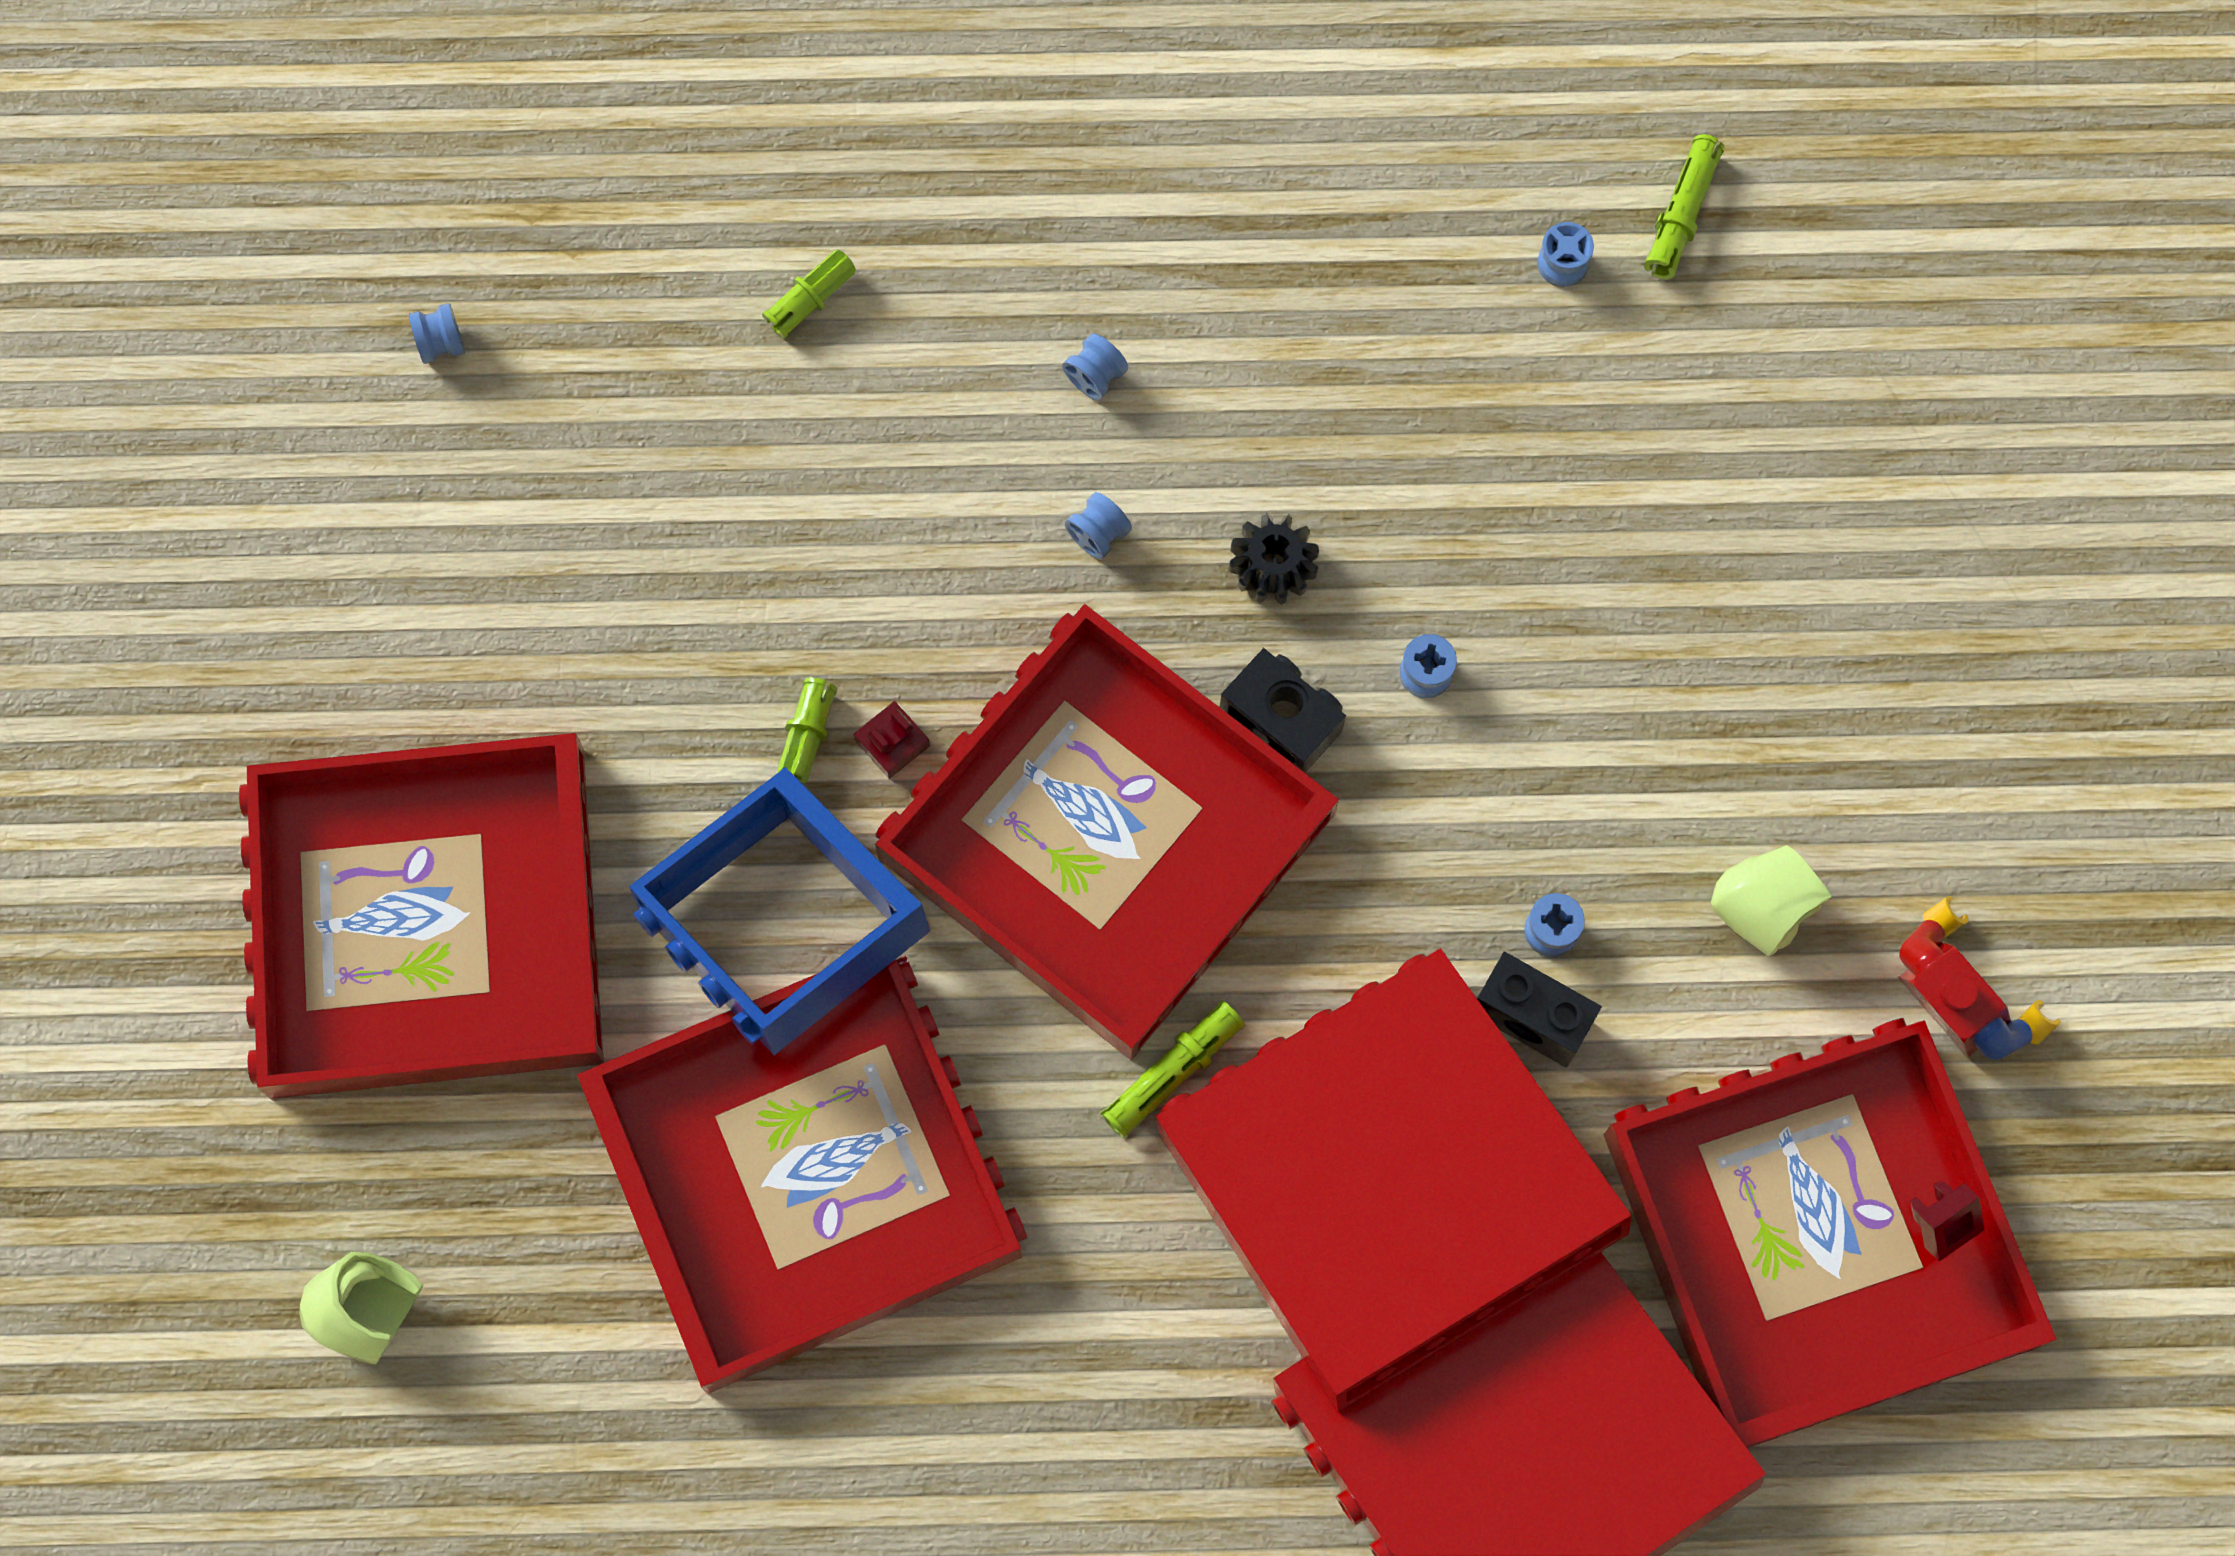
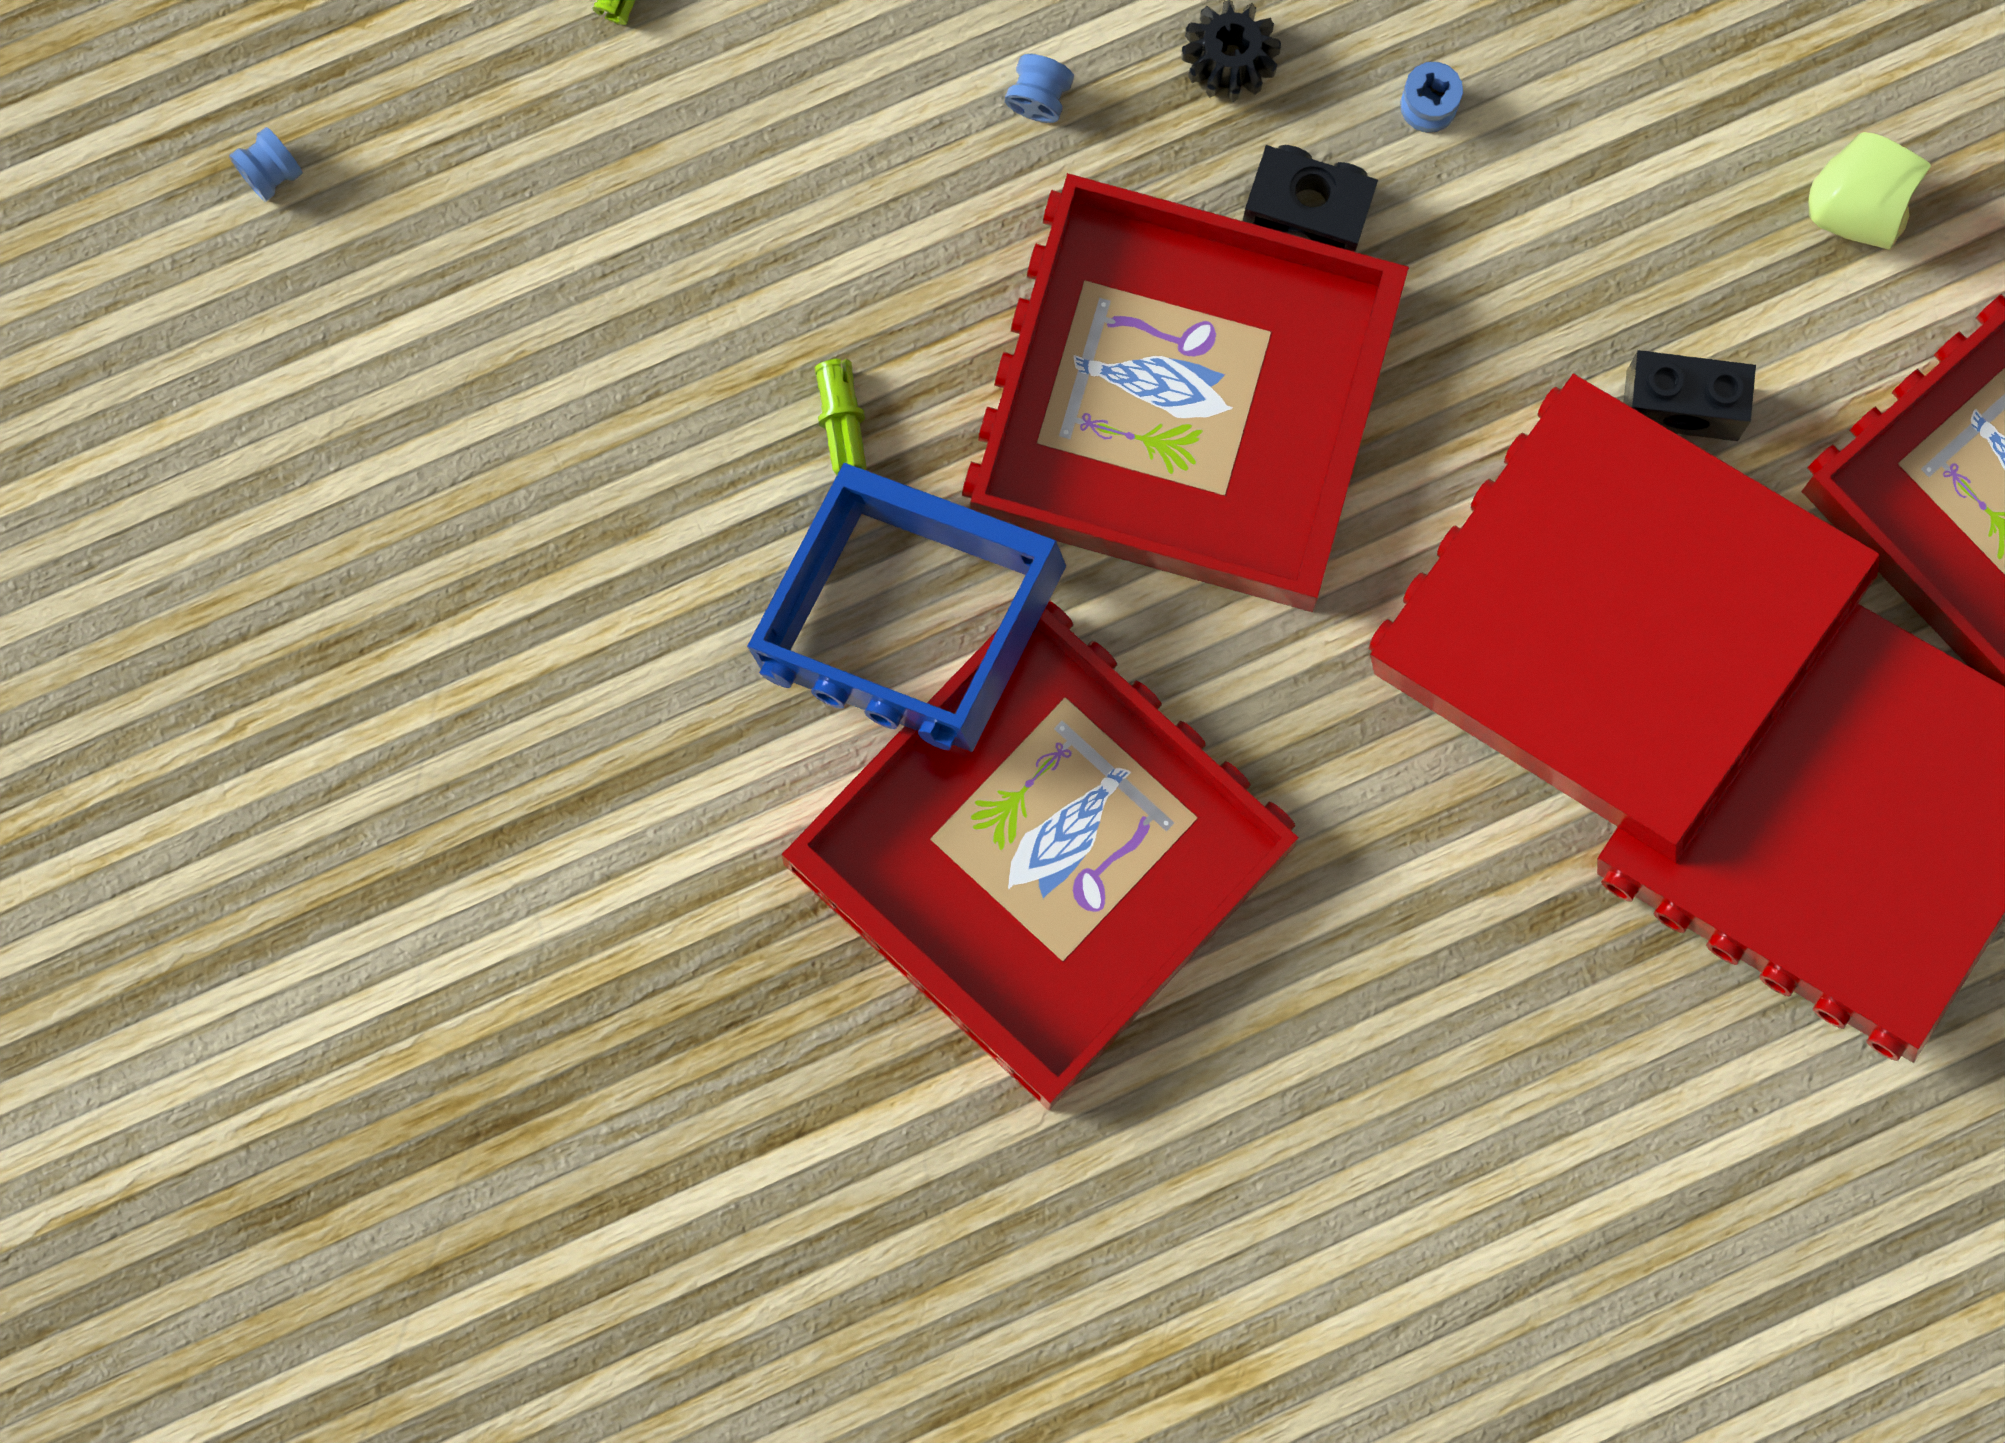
camera: 25 degrees left, 5 degrees up
(358, 1305) = (670, 1171): yellowish green piece -> none
(420, 916) = (541, 764): red panel -> none
(891, 739) = (929, 391): dark red tile -> none
(1173, 1068) = (1369, 582): lime pin -> none
(1551, 936) = (1662, 316): medium blue wheel -> none

